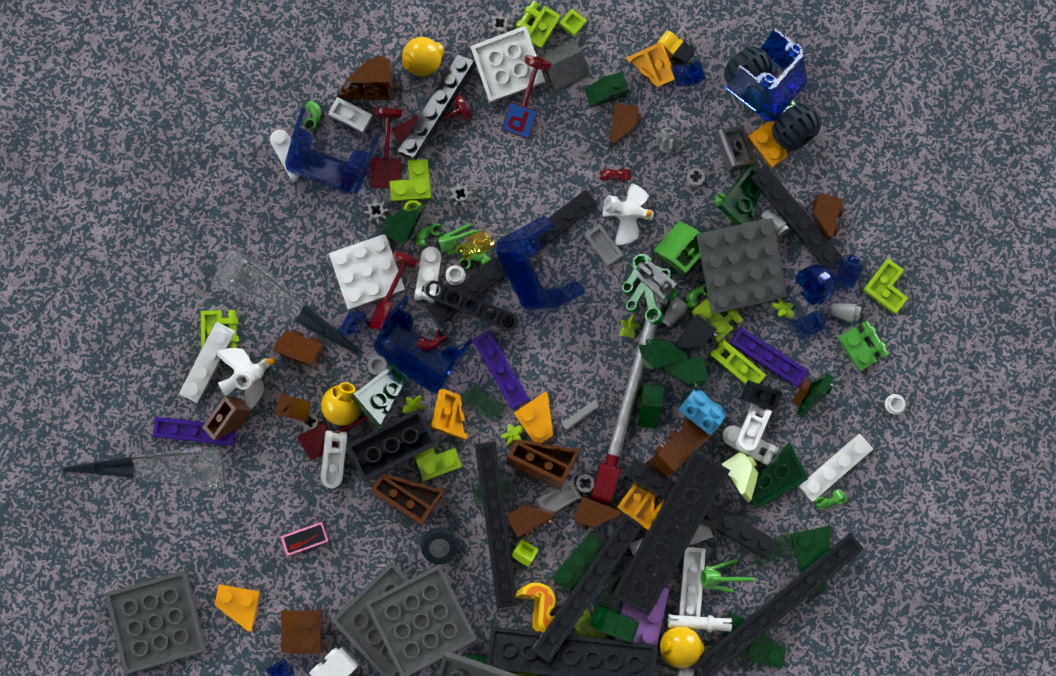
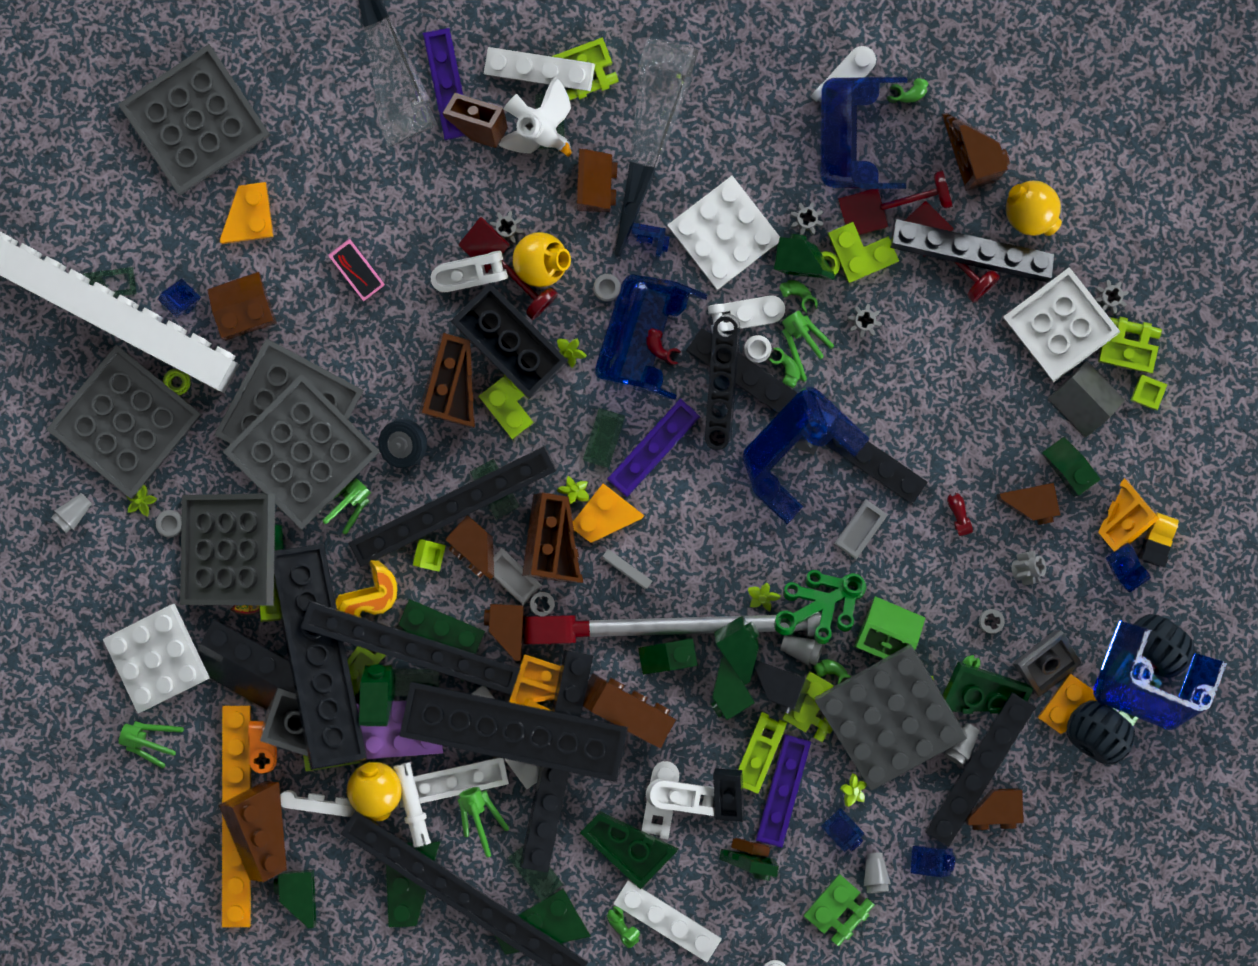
camera: 65 degrees right, 5 degrees up
(292, 407) = (515, 199): reddish brown slope -> none
(350, 115) = (924, 140): white plate -> none
(379, 393) = (569, 303): wing -> none
(384, 306) = (683, 271): dark red piece -> none
(448, 415) = (572, 400): light orange wing -> none
(463, 592) = (354, 494): none -> bright green plant
(475, 243) = (807, 362): clear yellow plate -> none
(518, 117) = (994, 364): dark red piece -> none
(628, 212) = (913, 547): white animal -> none
(655, 279) = (834, 610): hinge -> none
(703, 411) = (683, 725): dark azure plate -> none
(743, 473) = (618, 801): yellowish green slope -> none
(817, 283) = (901, 824): clear blue cylinder -> none
(881, 287) = (924, 910): lime plate -> none

